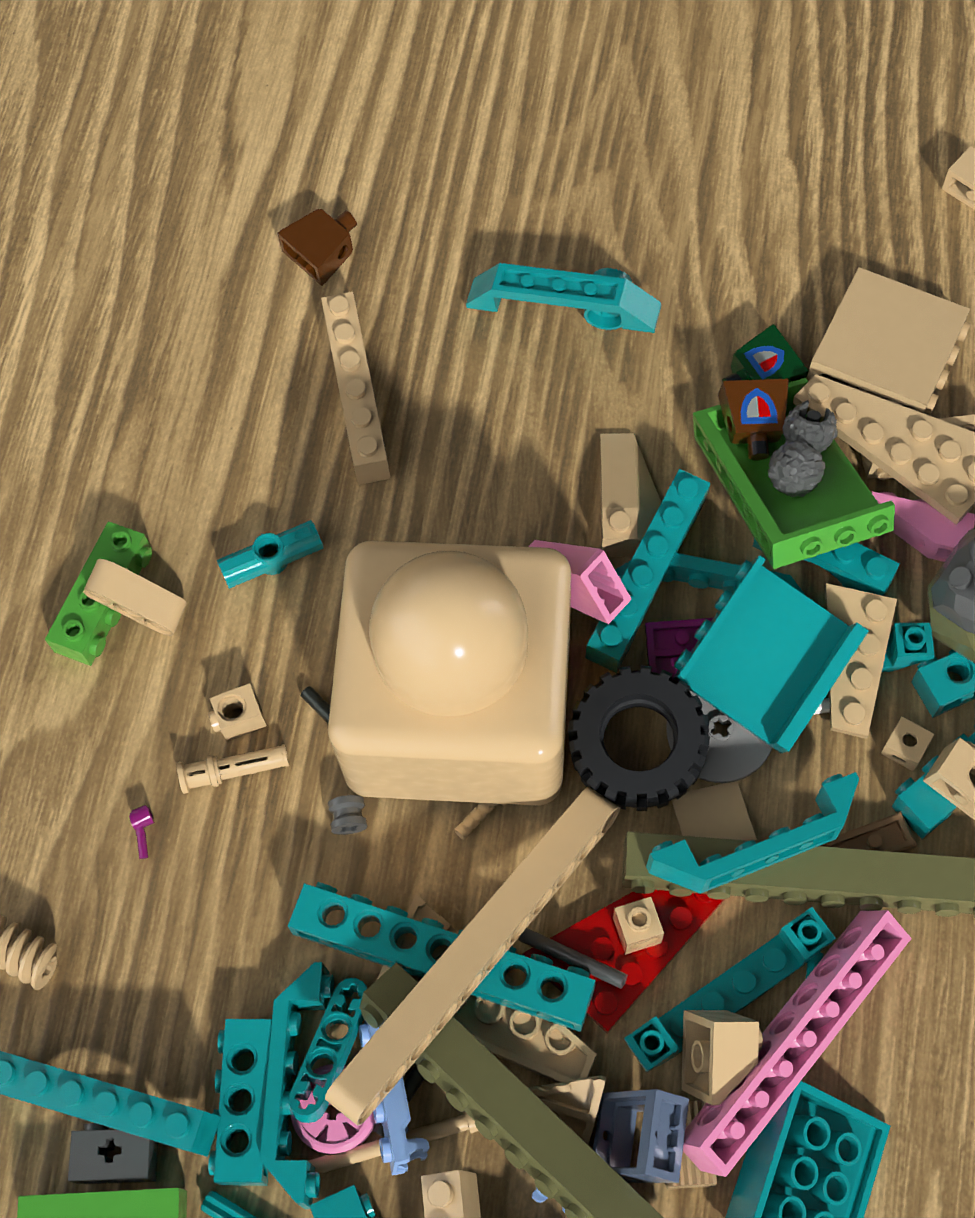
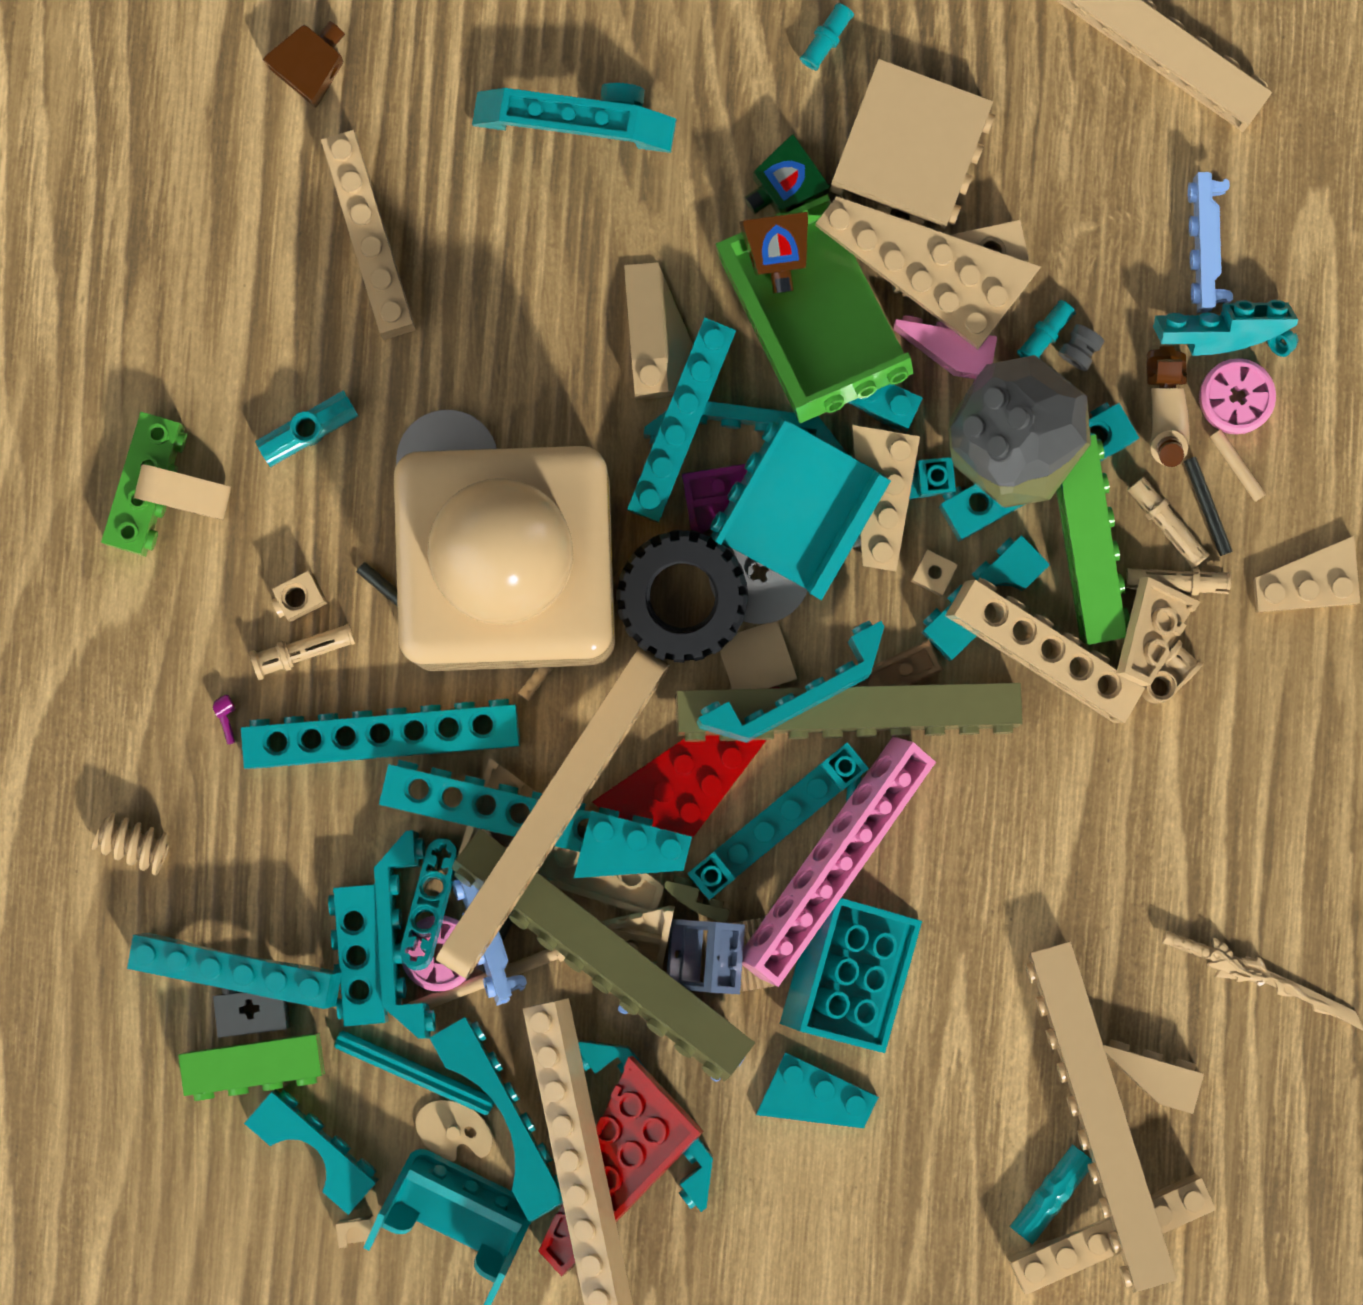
camera: 10 degrees left, 20 degrees up
(171, 850) = (259, 754): none -> teal brick
(347, 814) = (417, 688): dark grey wheel -> none
(561, 998) = (628, 847): none -> teal wing
(573, 957) = (639, 805): dark grey piece -> none
(594, 581) = (618, 446): bright pink slope -> none
(620, 1066) = (683, 891): none -> olive slope
(638, 925) = (693, 773): tan brick -> none
(717, 1052) = (768, 879): tan slope -> none
(796, 468) = (817, 313): dark grey piece -> none
(807, 253) = (826, 36): none -> teal pin
(809, 429) = (831, 266): dark grey piece -> none

